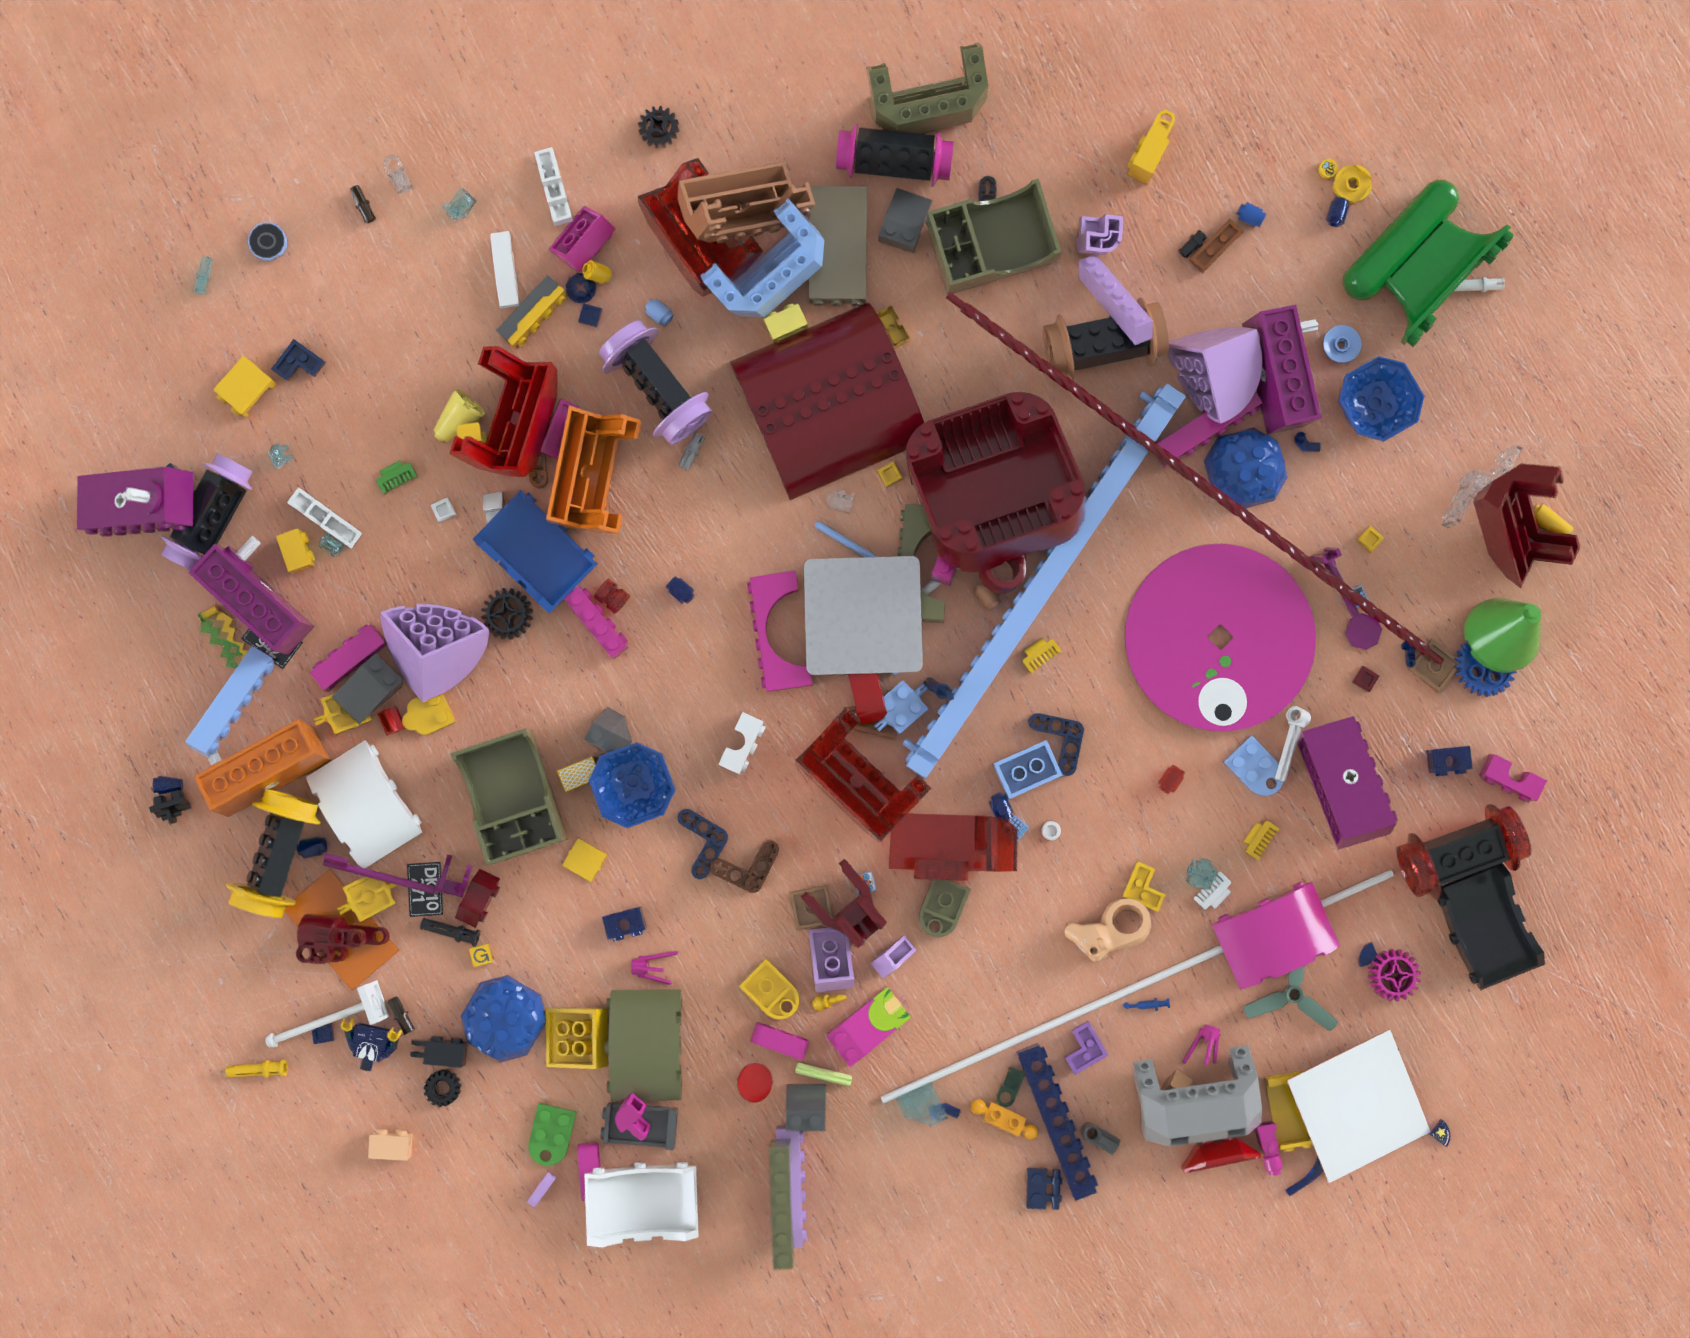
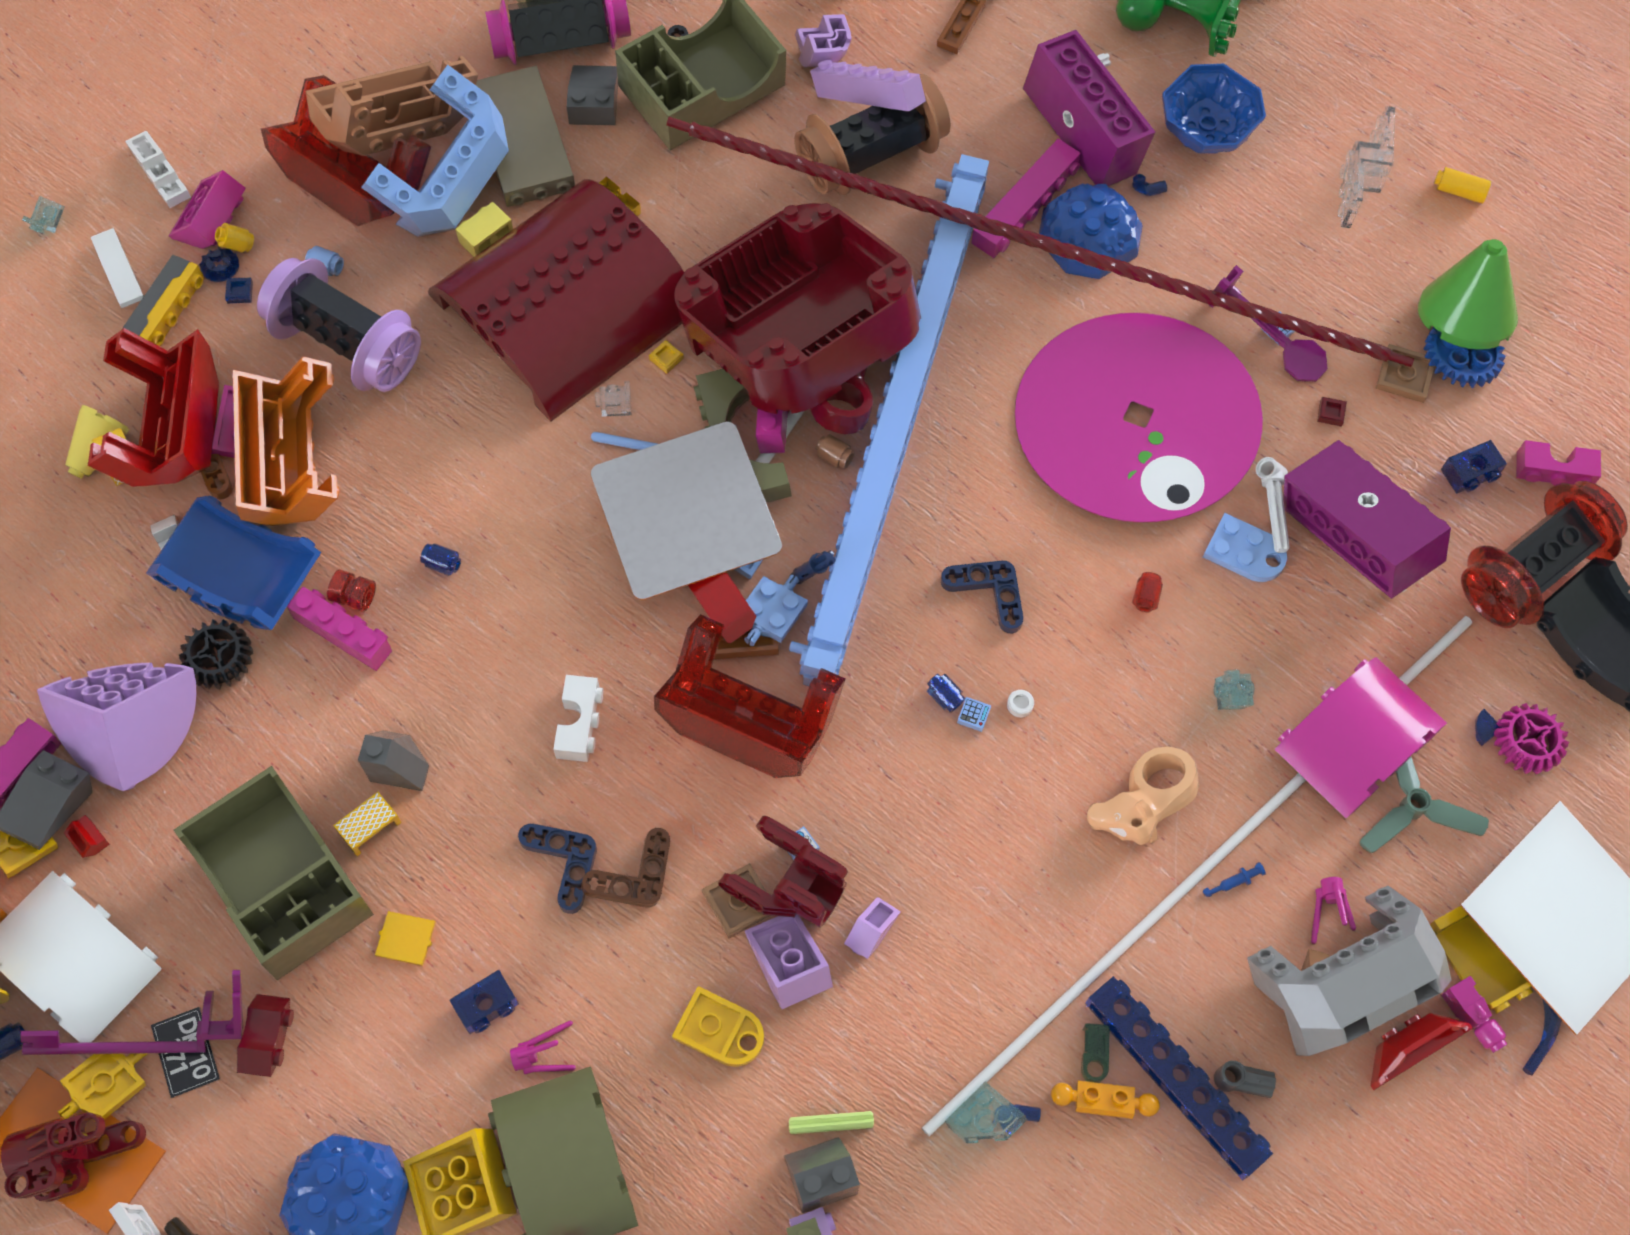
camera: 20 degrees left, 20 degrees down
(392, 472) = (23, 533): bright green piece -> none
(428, 715) = (136, 814): yellow plate -> none
(443, 510) = (101, 558): white tile -> none
(461, 931) = (249, 1095): black pin -> none
(481, 955) = (289, 1117): yellow tile -> none
(632, 785) = (441, 804): blue rock -> none
(663, 121) = (270, 76): black gear -> none
(691, 451) = (408, 398): light grey axle -> none
(754, 1082) = (737, 1165): red piece -> none
(766, 593) = (599, 617): dark pink arch -> none
(779, 1040) = (753, 1094): dark pink beam -> none
(820, 1003) = (794, 1024): yellow bar -> none
(868, 1026) = (869, 1035): dark pink slope -> none
(943, 904) = (915, 838): olive plate -> none
(953, 845) = (902, 758): clear red beam -> none
(1027, 769) = (961, 633): light blue brick -> none
(1037, 1188) = (1188, 1184): dark blue plate -> none
(1038, 649) = (919, 498): yellow piece -> none
(1090, 1051) = (1183, 961): medium lavender plate -> none
(1138, 888) = (1160, 731): yellow plate -> none
(1194, 242) = (935, 25): black pin -> none
(1216, 896) = (1264, 718): white piece -> none
(1219, 369) = (1015, 127): lavender brick -> none
(1256, 836) = (1281, 629): yellow piece -> none
(1348, 337) = (1144, 76): light blue dish -> none
(1370, 538) = (1266, 262): yellow tile -> none
(1409, 654) = (1369, 366): clear blue arm -> none
(1511, 524) = (1416, 183): dark red wedge -> none

